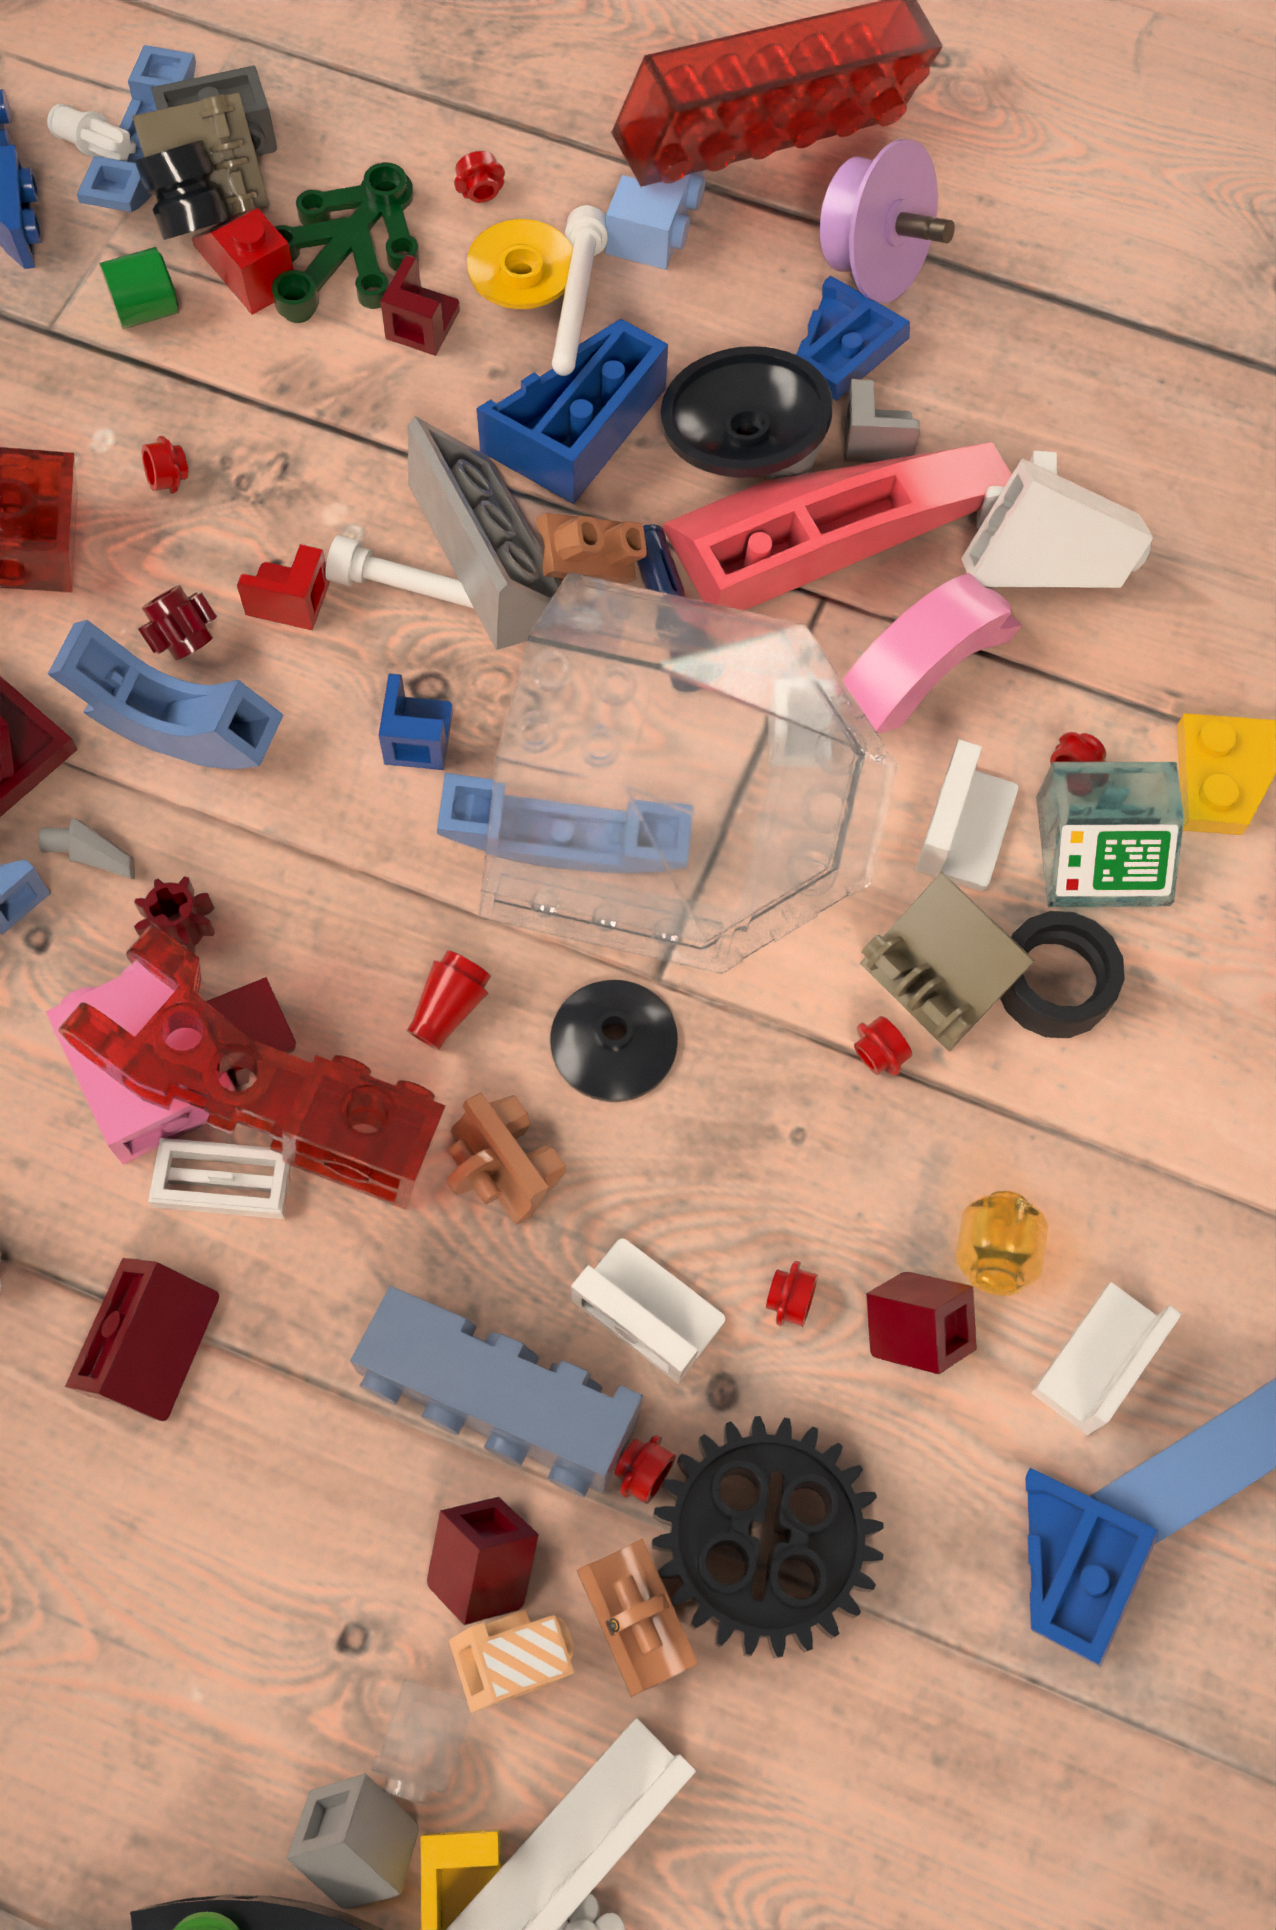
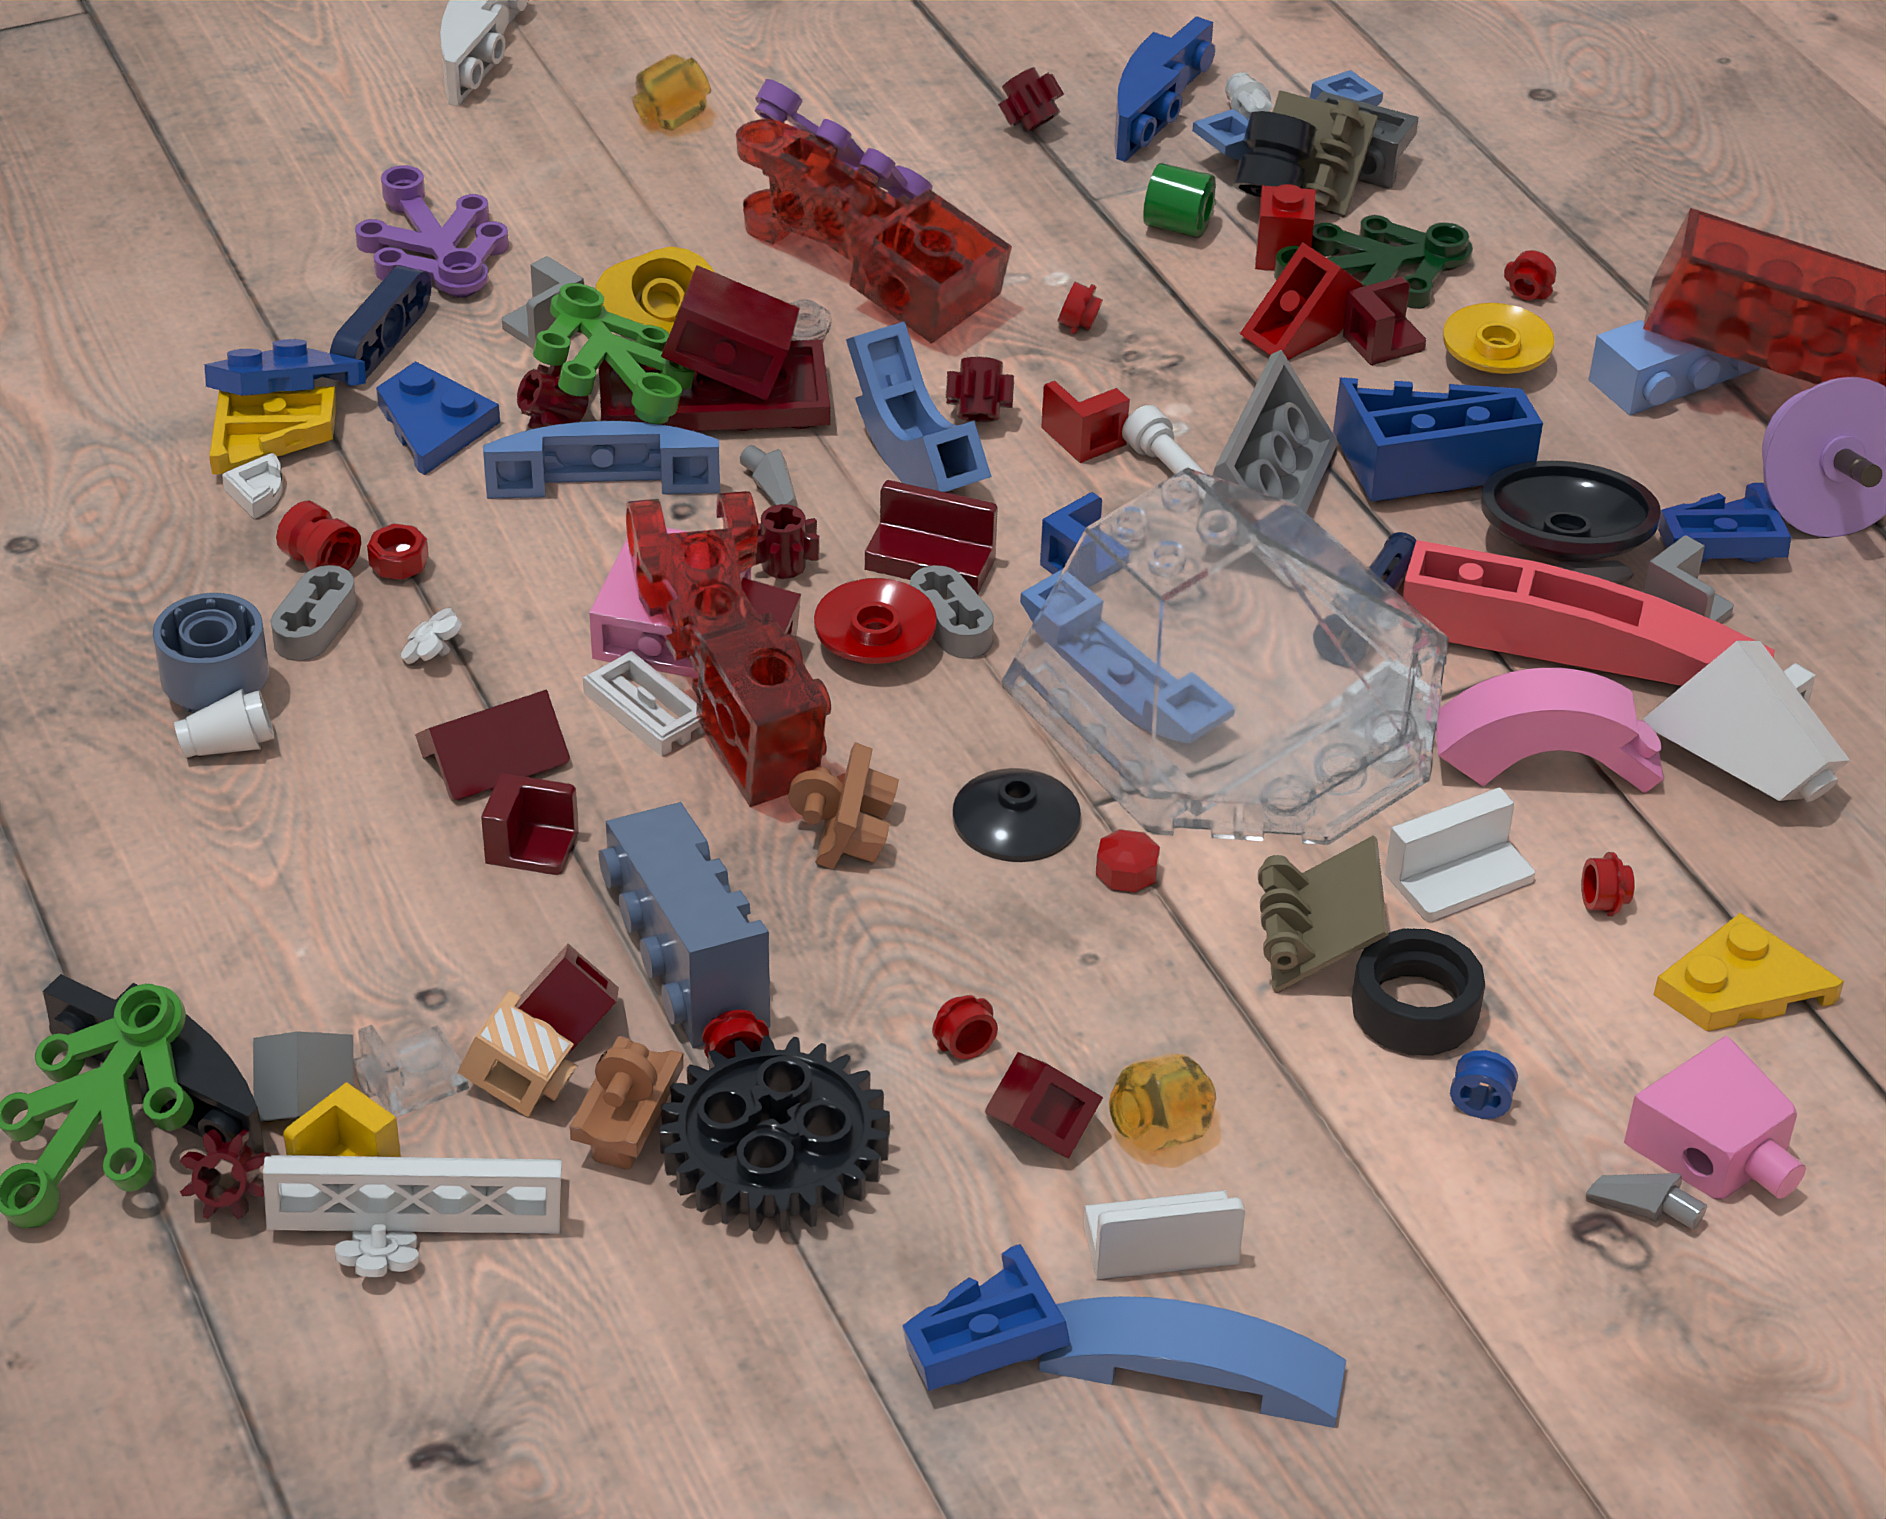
camera: 45 degrees right, 25 degrees down
(269, 1402) = (530, 824): none -> dark red panel
(292, 816) = (930, 529): none -> dark red panel
(328, 917) = (875, 620): none -> red dish
(345, 338) = (1302, 305): none -> red slope
(380, 866) = (963, 606): none -> light grey beam
(448, 997) = (919, 703): red cone -> none
(588, 237) = (1571, 350): white piece -> none
(590, 547) = (1338, 509): nougat hips -> none
(648, 1309) = (848, 964): white panel -> none
(744, 1020) = (1127, 860): none -> red tile
(882, 1046) = (1215, 940): red plate -> none
(1110, 833) = (1567, 927): slope -> none
(1179, 1023) = (1478, 1099): none -> blue bush

